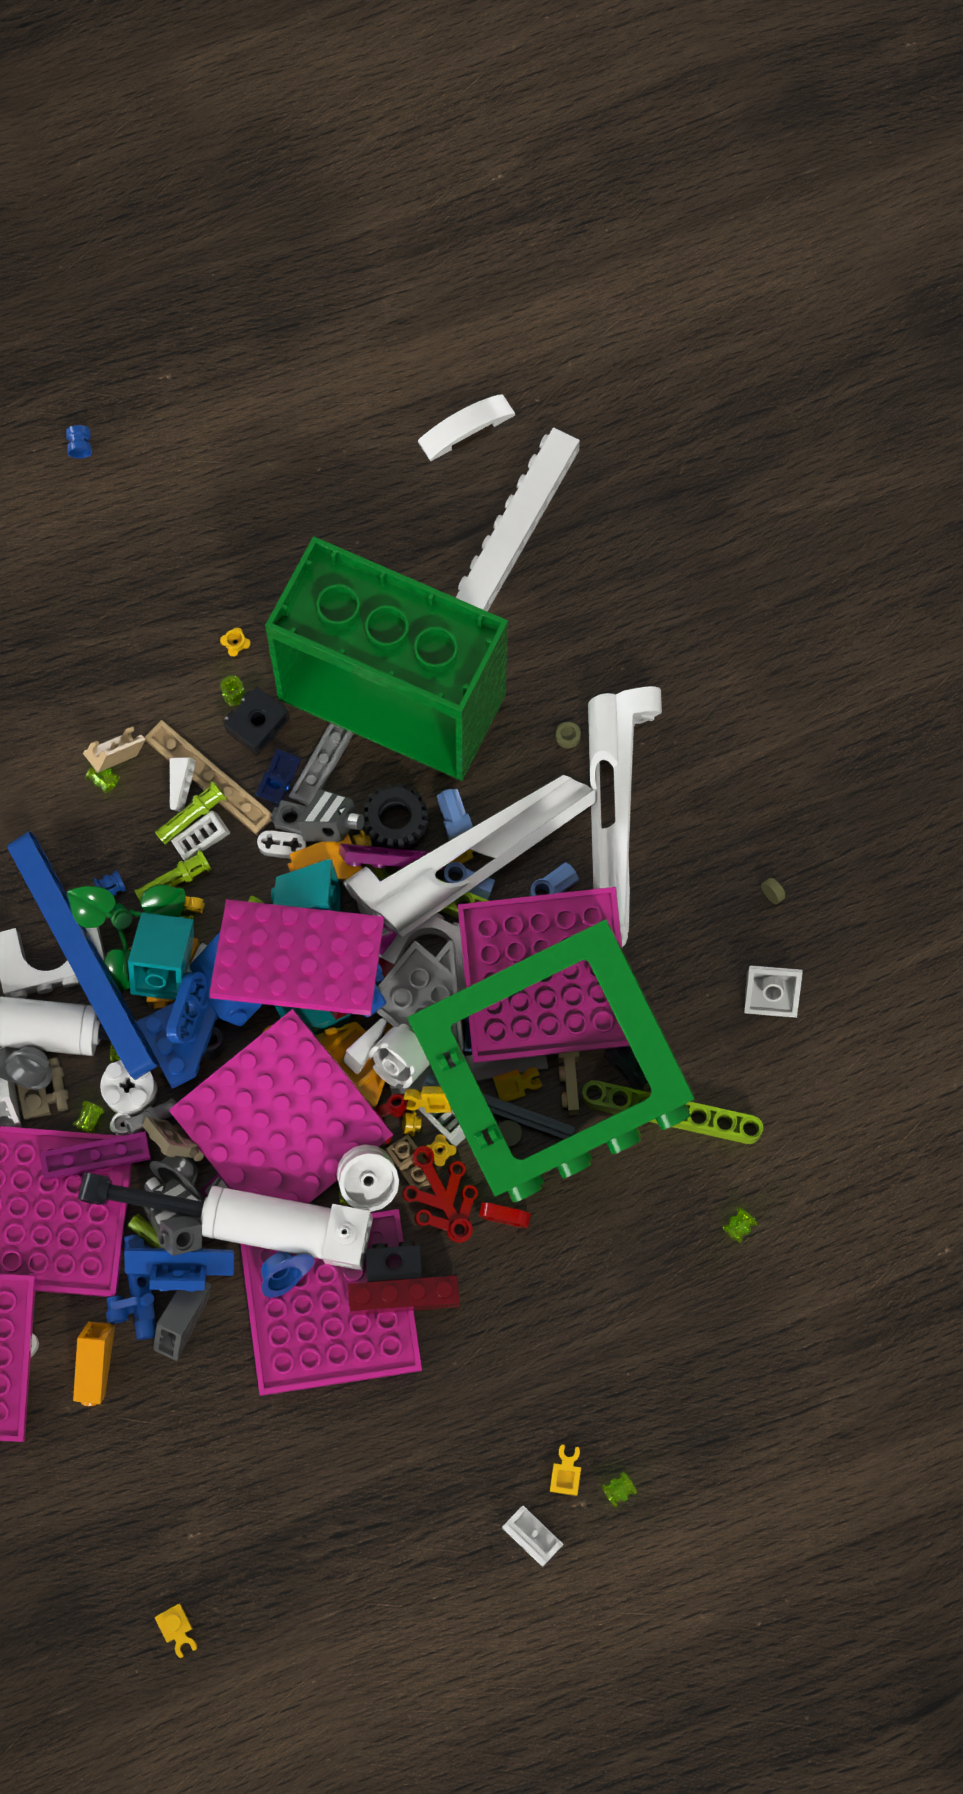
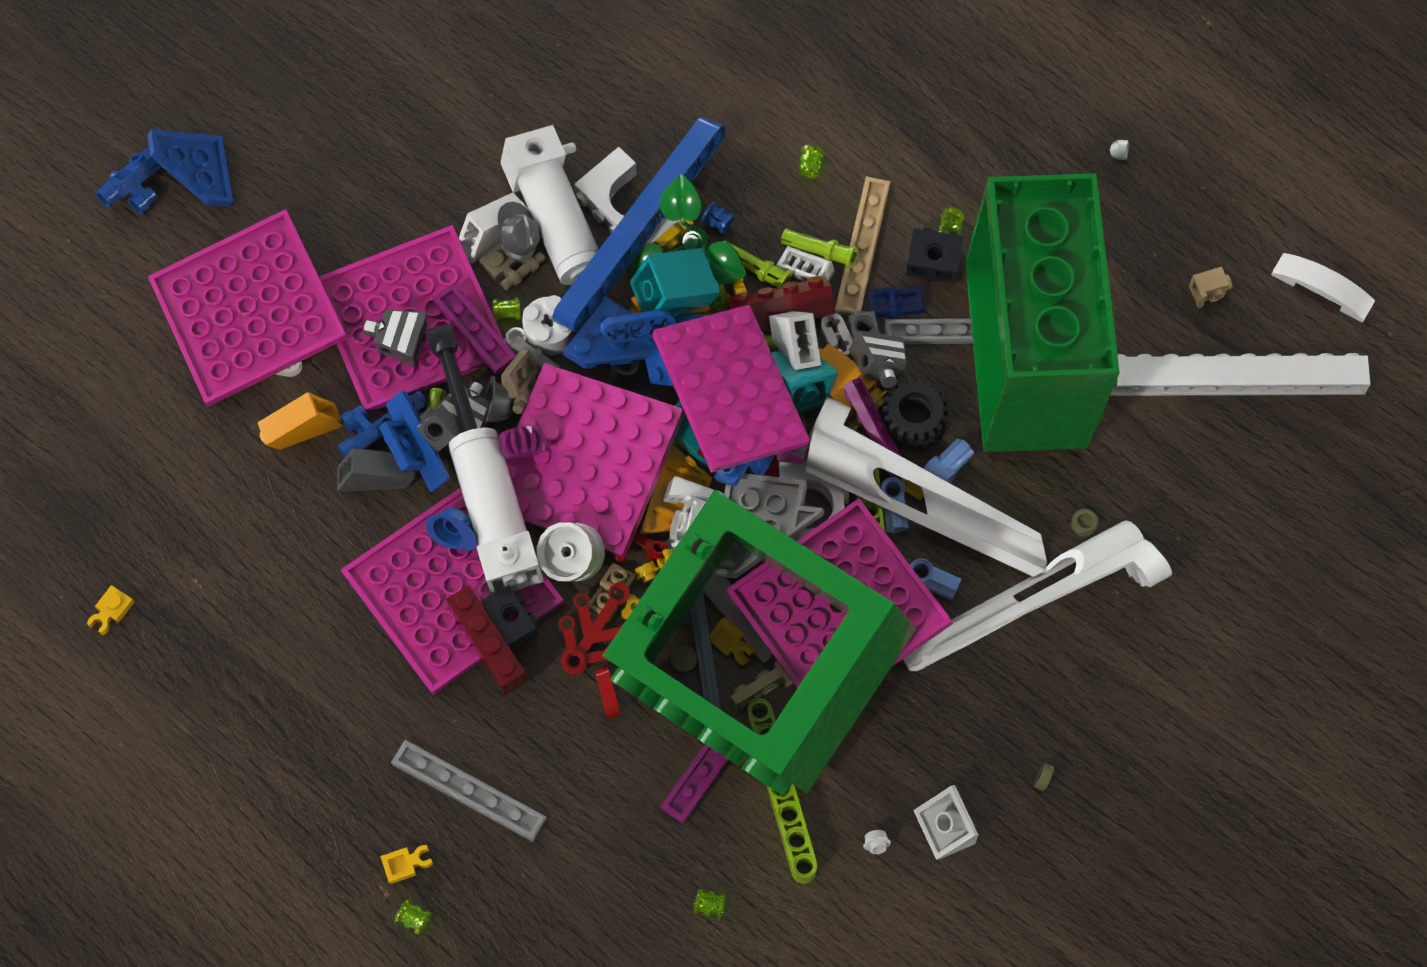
camera: 60 degrees right, 5 degrees down
(61, 1227) = (399, 334): none -> dark grey torso
(107, 938) = (672, 237): none -> yellow plate
(114, 751) = (837, 157): tan hinge -> none
(180, 780) = (842, 223): white slope -> none
(229, 871) = (809, 296): none -> dark red brick
(239, 1167) = (522, 442): none -> magenta gear
(245, 515) = (1119, 149): none -> white hinge
(275, 877) = (796, 338): none -> white slope
(416, 515) = (1209, 286): none -> tan brick
(527, 1383) = (469, 790): none -> light grey tile
(532, 1536) = (333, 862): white hinge -> none
(625, 1182) = (694, 784): none -> magenta plate
(758, 1057) = (876, 841): none -> white plate

